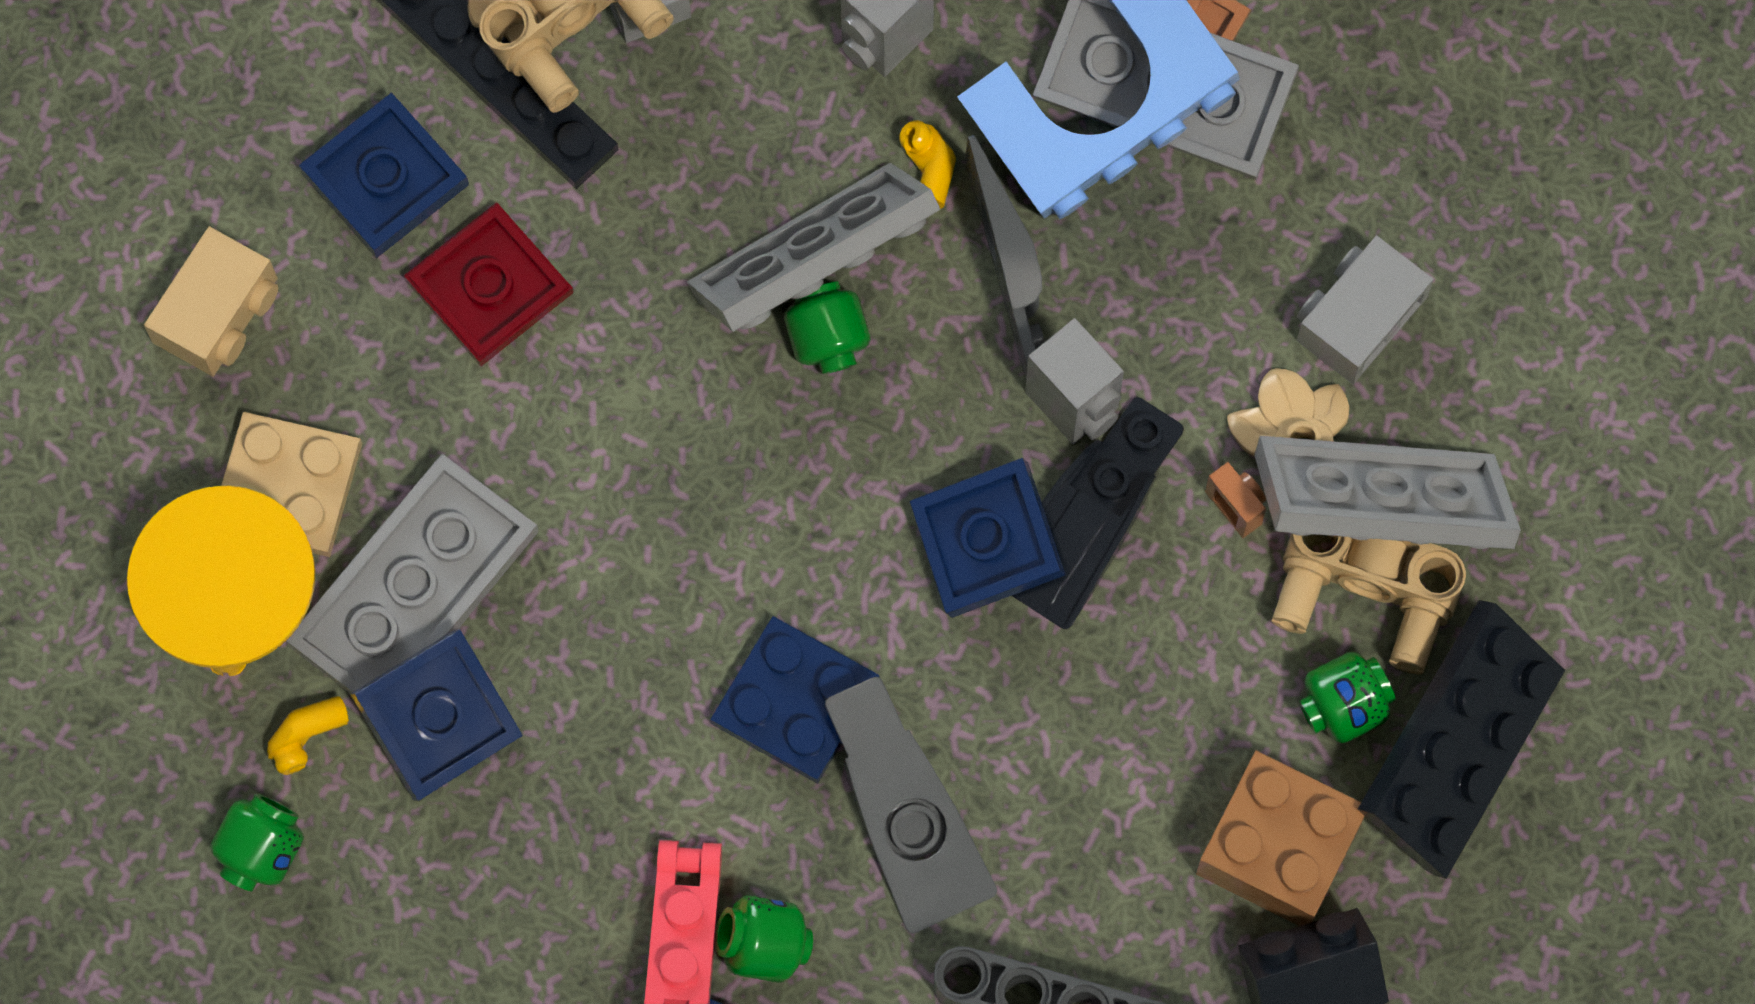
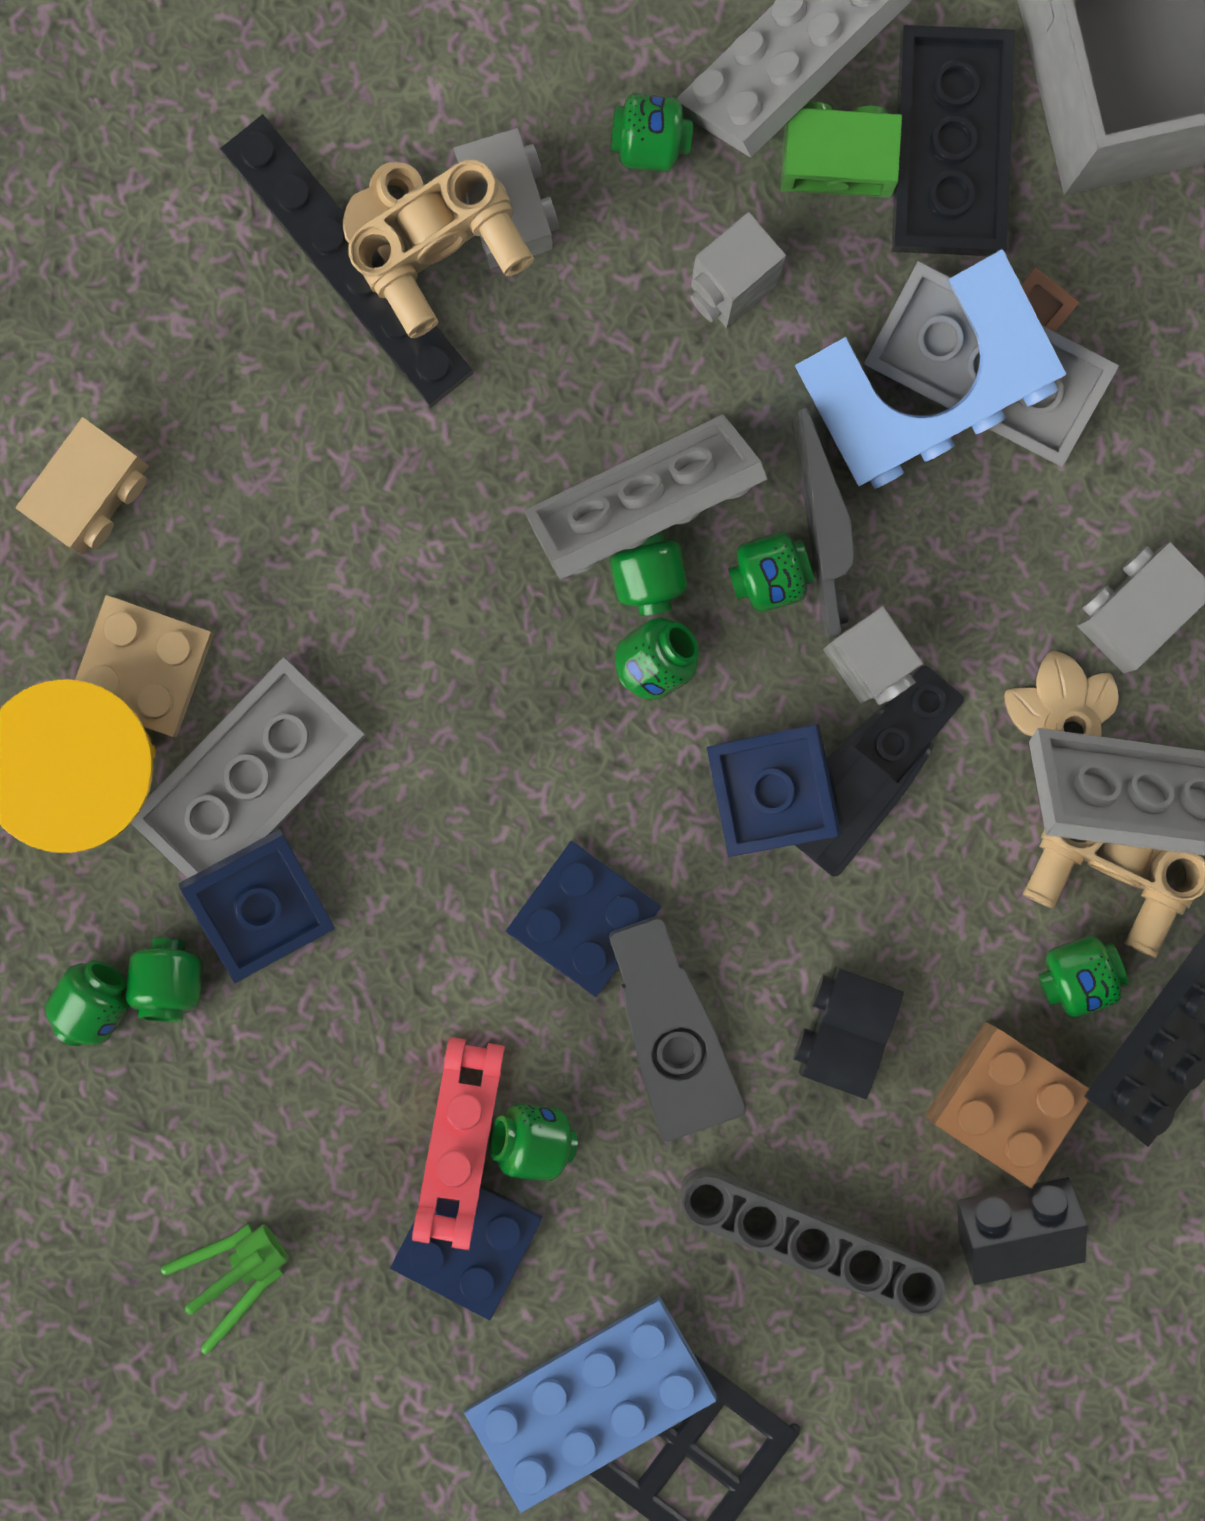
camera: 10 degrees right, 15 degrees up
(299, 727) = (136, 897): yellow arm -> none
(339, 809) = (164, 981): none -> green head
(384, 175) = (252, 377): dark blue plate -> none
(488, 284) = (341, 493): dark red tile -> none
(845, 413) = (656, 658): none -> green head
(930, 155) = (762, 413): yellow arm -> none
(959, 312) = (771, 572): none -> green head
(1099, 784) = (849, 1032): none -> black brick
(1237, 498) = (1007, 777): nougat plate -> none

